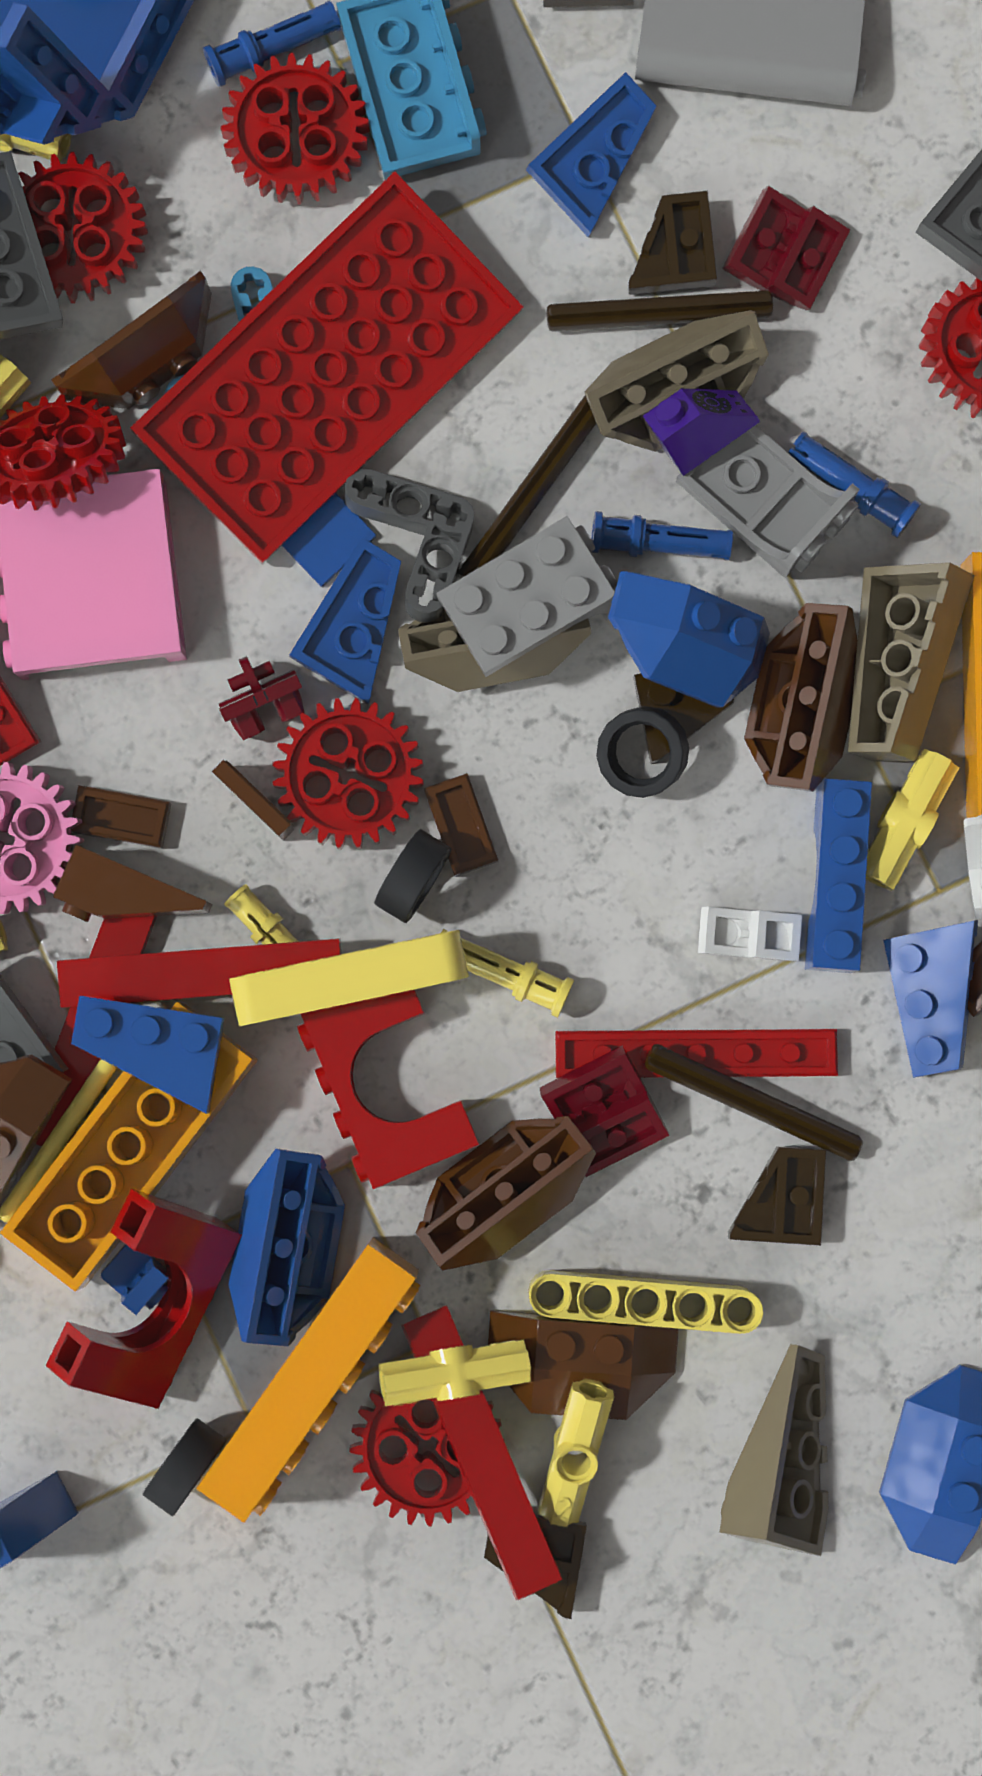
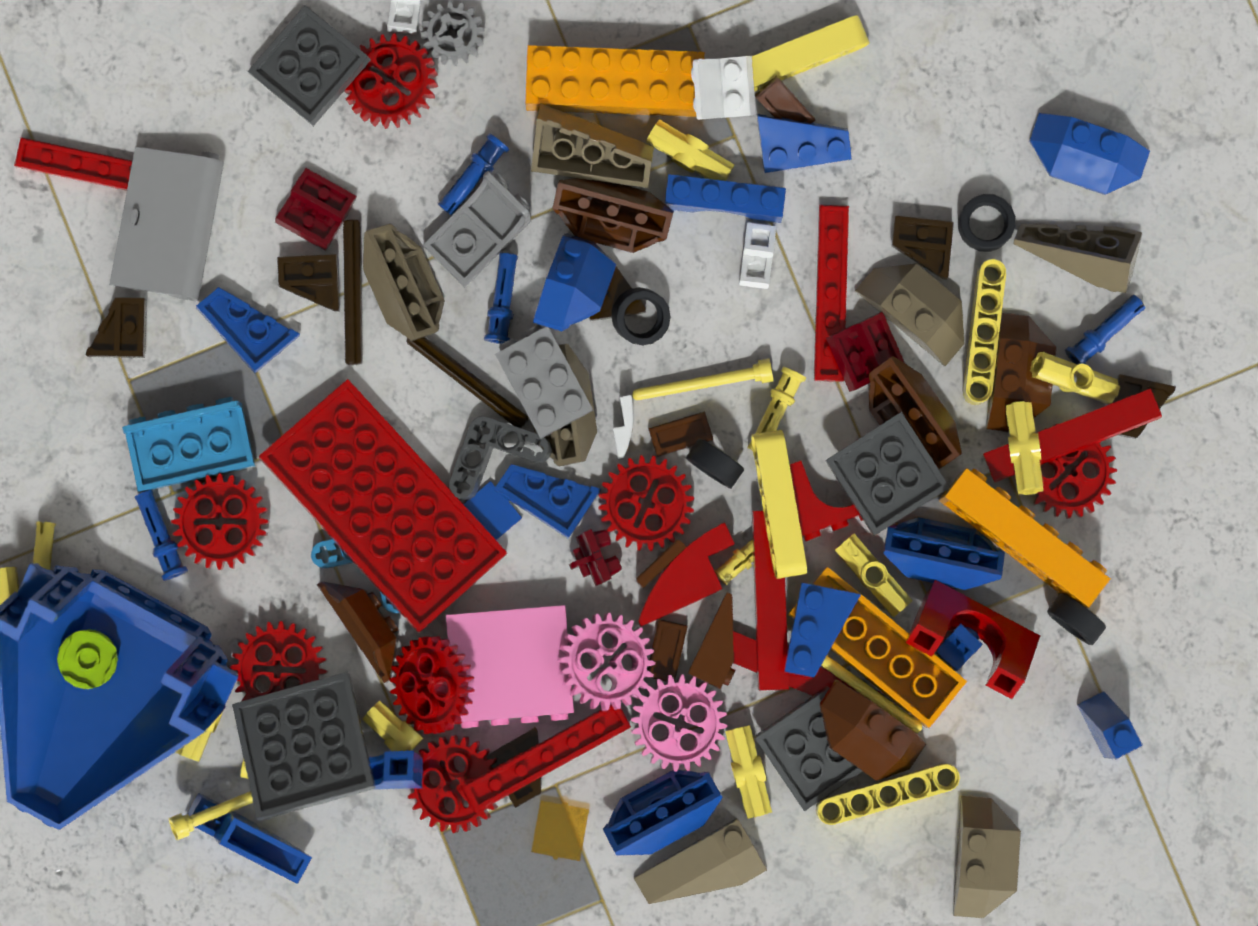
camera: 90 degrees left, 0 degrees up
(122, 689) = (589, 641): none -> bright pink gear
(225, 1158) = (887, 590): none -> light yellow piece
(234, 843) = (687, 577): none -> red slope
(404, 1151) = (887, 474): none -> dark grey plate
(452, 734) = (623, 434): none -> white slope
(564, 944) = (760, 372): none -> light yellow piece
(641, 1484) = (1095, 339): none -> blue pin
(679, 1192) = (917, 307): none -> dark tan wedge
(699, 424) = (432, 269): dark purple slope -> none
(753, 1102) = (864, 258): dark brown axle -> none
(857, 1311) = (997, 203): none -> black tyre

